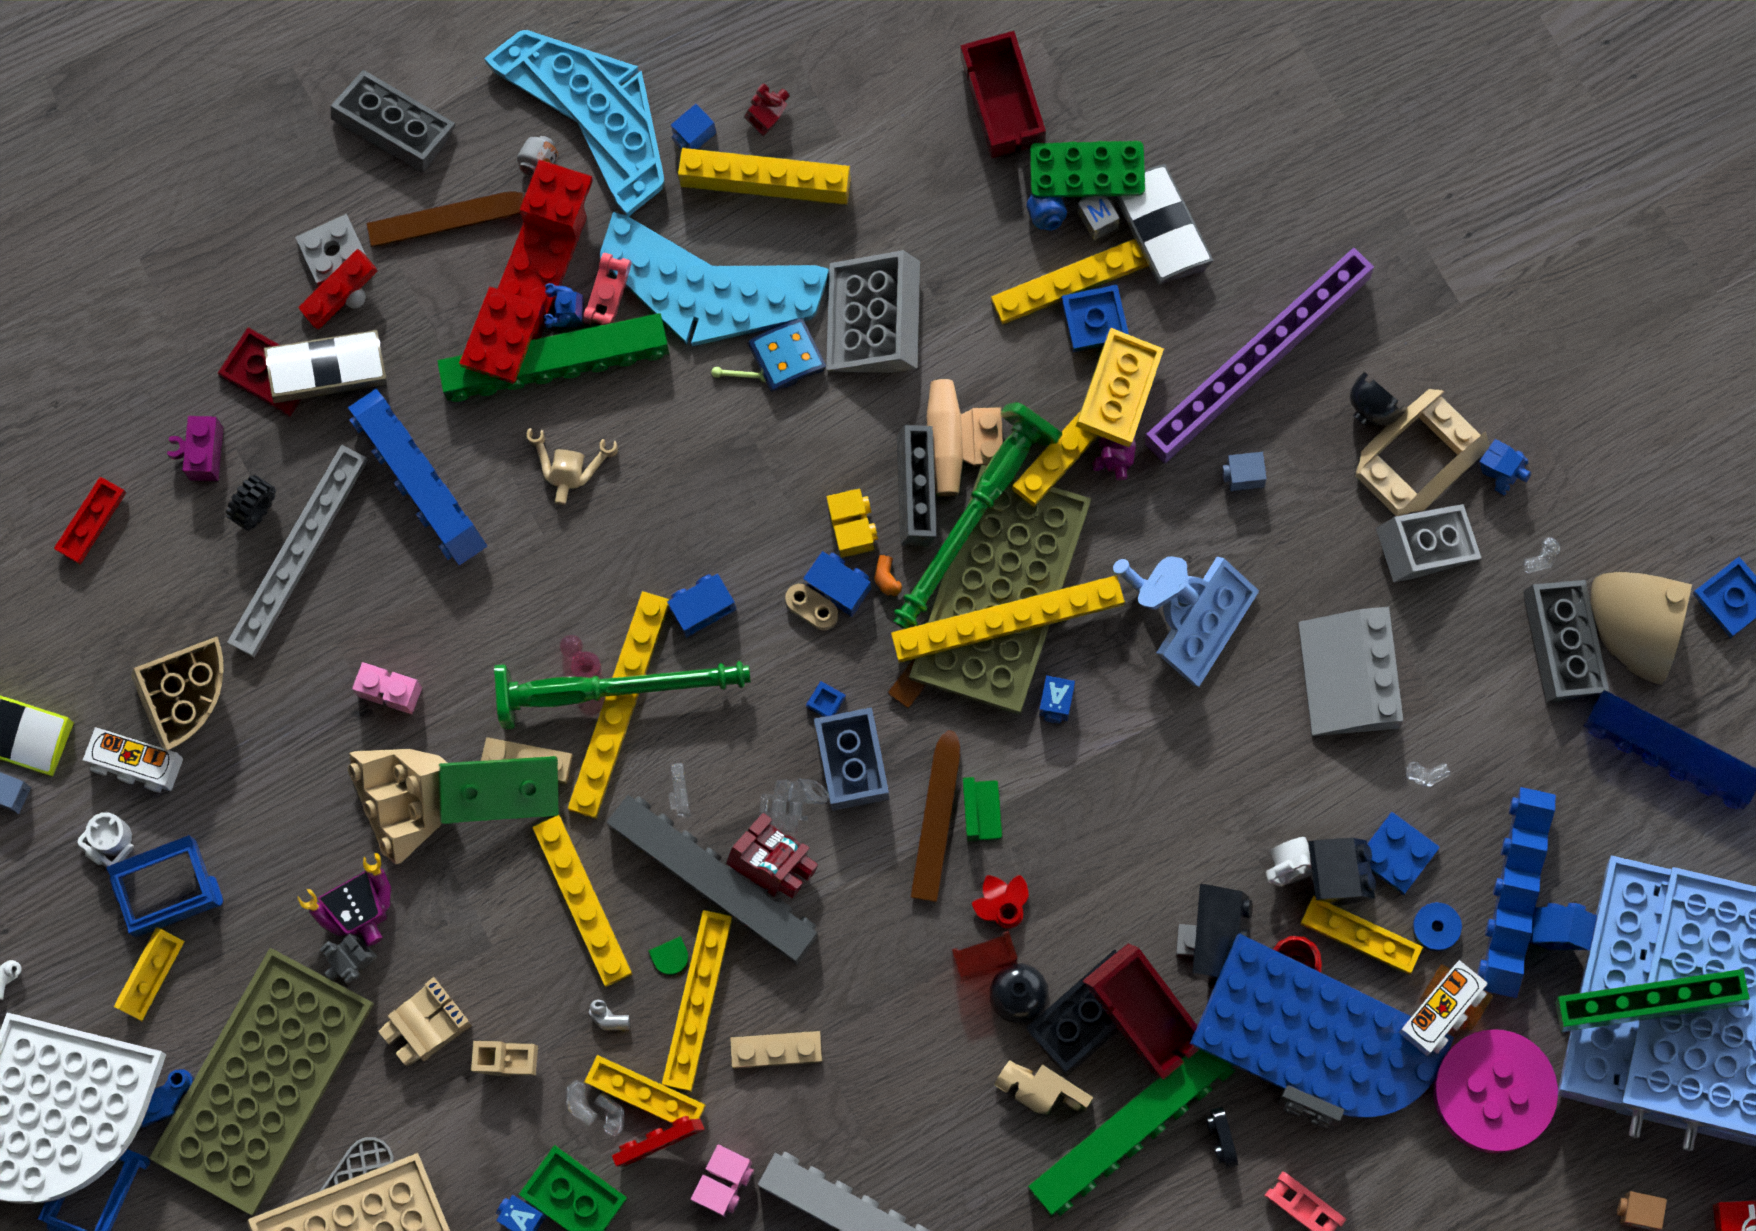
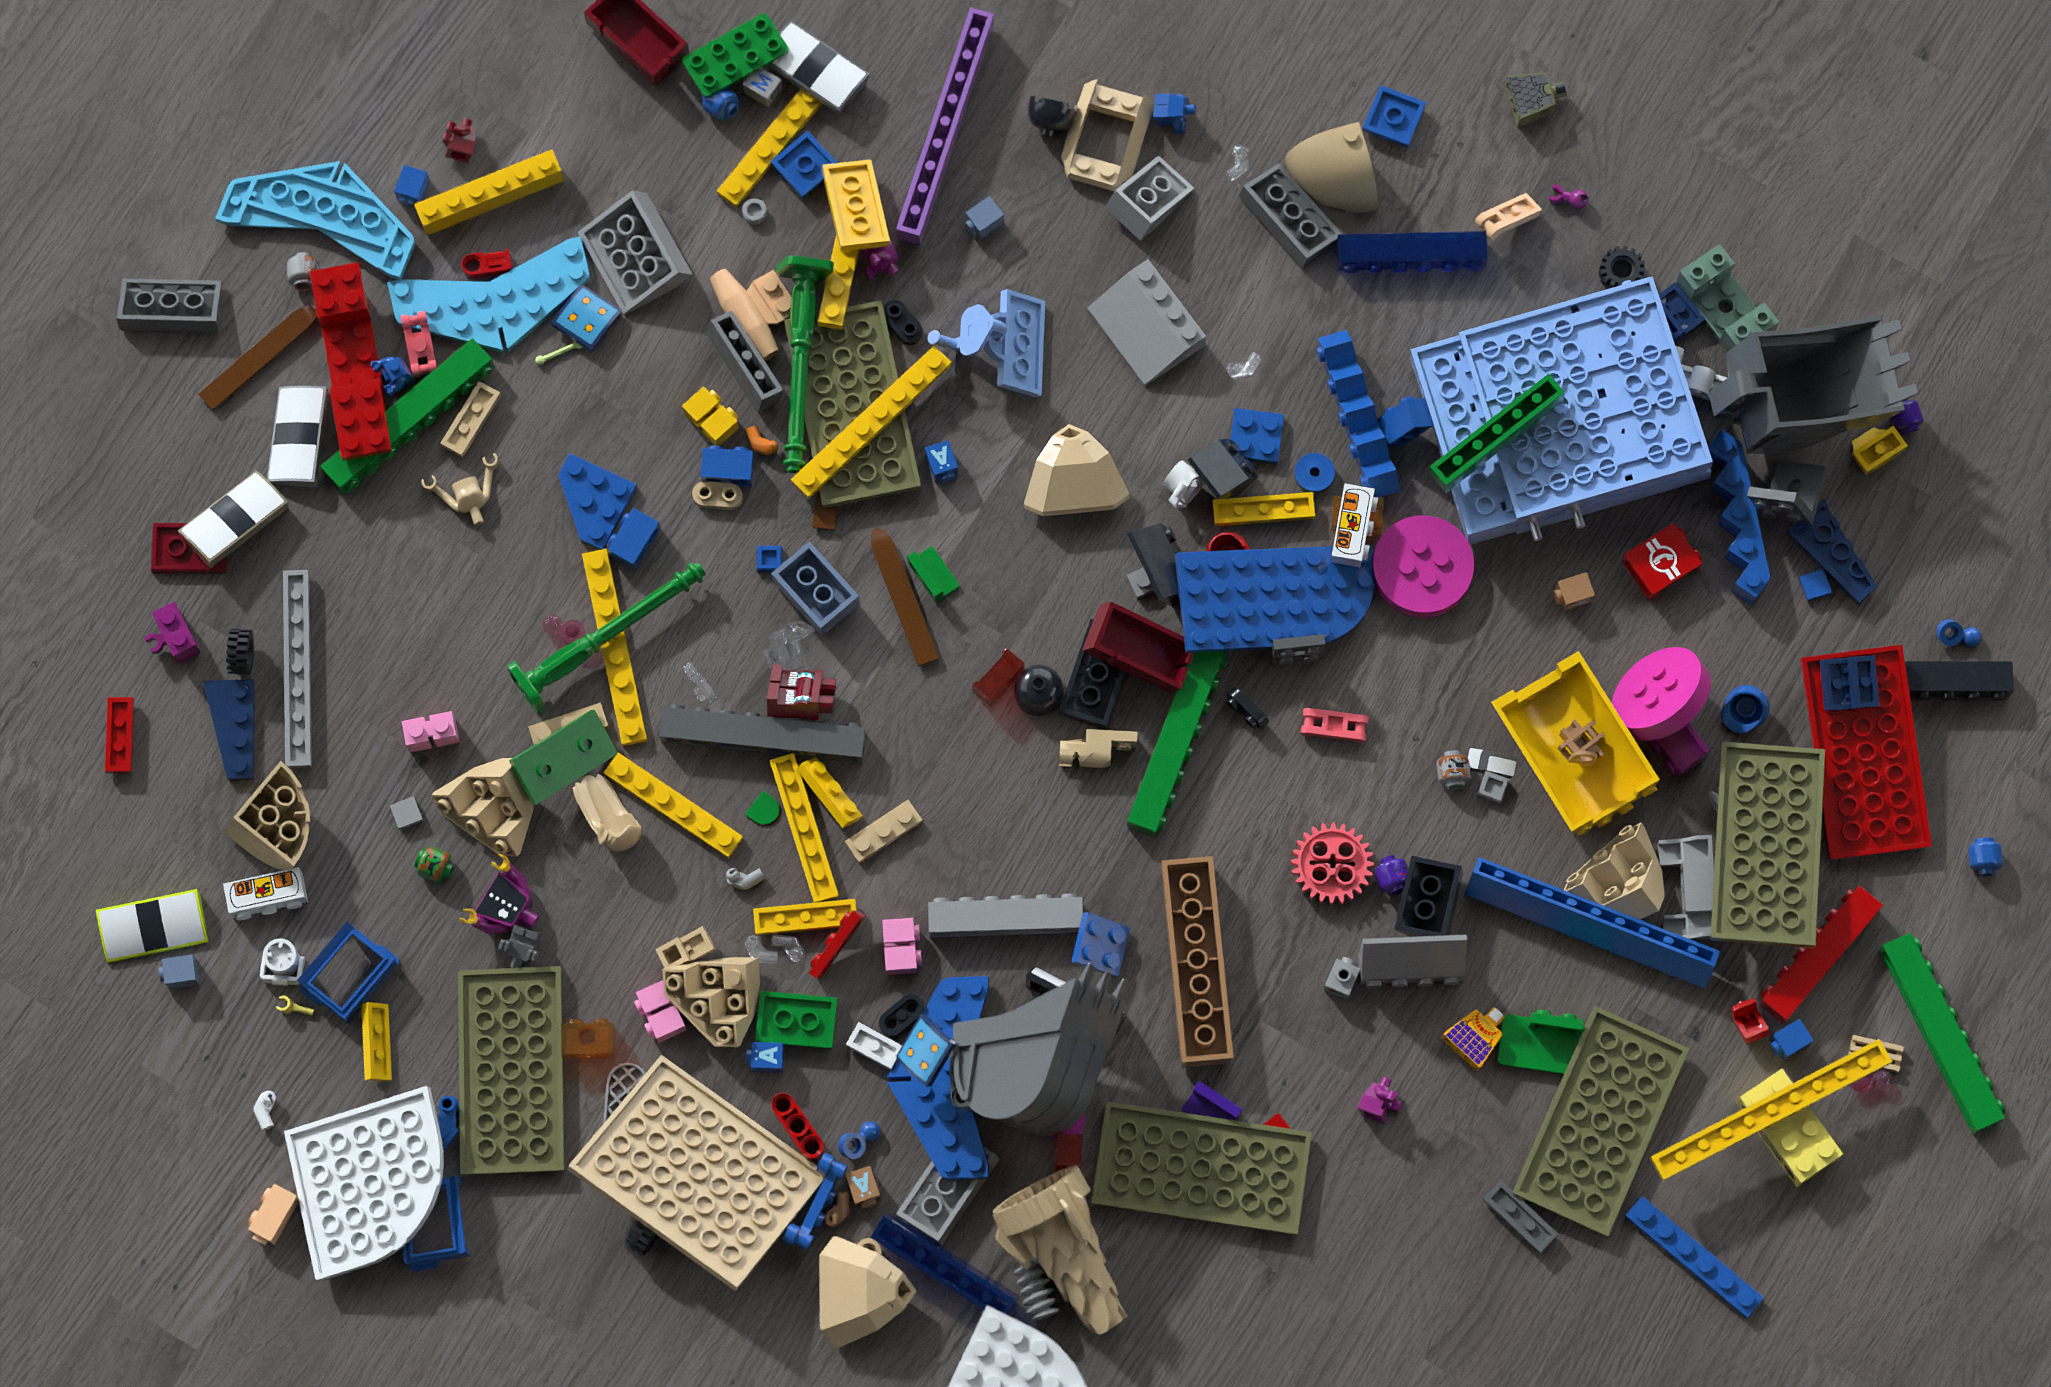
camera: 35 degrees left, 0 degrees up
(91, 889) = (294, 1007): none -> light yellow hand
(208, 566) = (234, 722): none -> dark blue wing
(311, 825) = (434, 864): none -> head
(314, 247) = (189, 444): light grey plate -> none
(317, 757) = (406, 813): none -> light grey tile
(337, 287) = (208, 455): red plate -> none
(338, 1087) = (601, 1047): none -> clear orange brick
(416, 477) = (357, 562): blue brick -> none
(426, 1022) = (608, 967): tan hips -> none
(437, 318) = (298, 436): none -> slope
(443, 1092) = (660, 1012): none -> bright pink piece
(506, 1125) = (716, 996): none -> tan brick
(509, 871) = (606, 813): none -> tan hair
(613, 394) = (470, 419): none -> tan plate
(687, 542) = (594, 499): none -> blue plate
(724, 248) = (490, 264): none -> red piece
(744, 978) = (829, 792): none -> yellow plate
(1001, 897) = (985, 628): red plate -> none
(1017, 338) = (754, 211): none -> light grey tile
(1099, 532) = (901, 321): none -> black plate
(1182, 792) = (1074, 476): none -> tan brick

